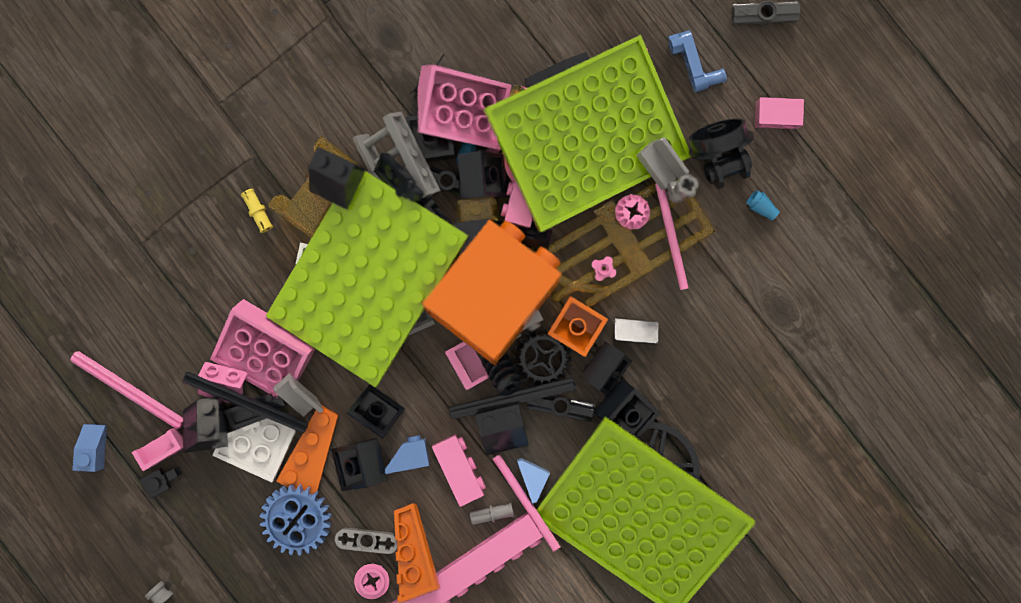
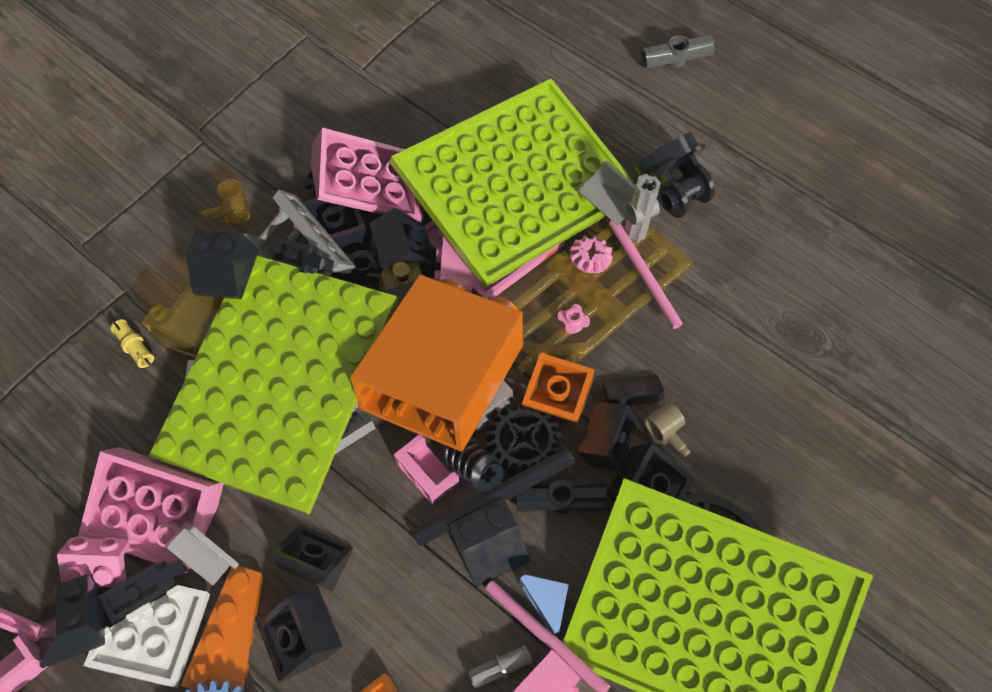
camera: 10 degrees left, 25 degrees down
(245, 402) = (126, 573): black axle -> none
(347, 101) = (233, 203): none -> clear yellow piece
(410, 455) = (368, 607): medium blue slope -> none
(459, 469) = (442, 611): bright pink brick -> none
(650, 369) = (663, 425): none -> dark tan piece
(685, 44) = (623, 118): medium blue beam -> none
(761, 204) = (739, 225): dark azure cone -> none
(779, 113) = (725, 134): bright pink panel -> none

